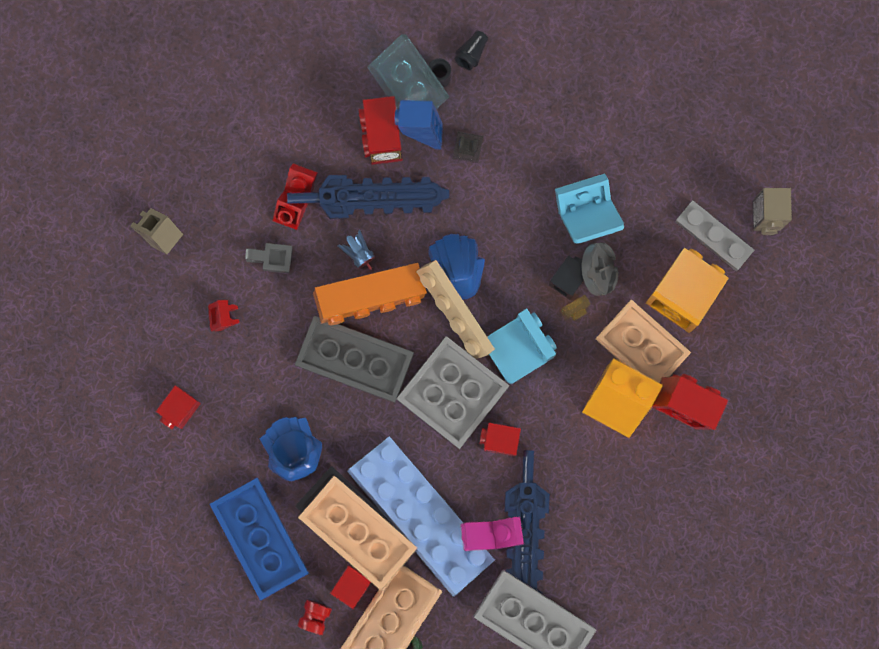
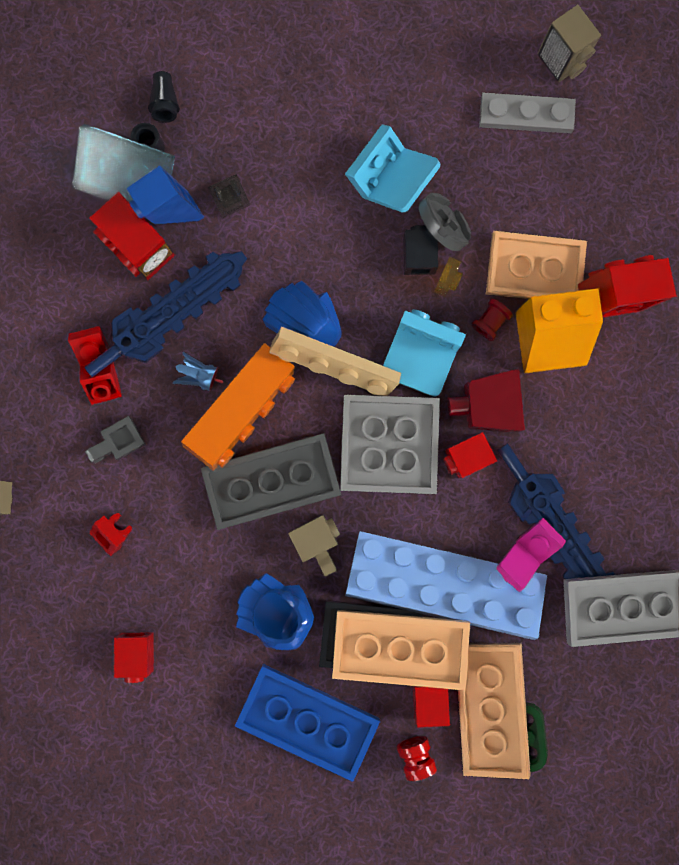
camera: 40 degrees left, 5 degrees up
(355, 419) = (314, 540): none -> dark tan brick
(542, 414) = (491, 403): none -> dark red torso
(585, 358) = (492, 319): none -> dark red bush
(687, 290) = (543, 182): light orange slope -> none

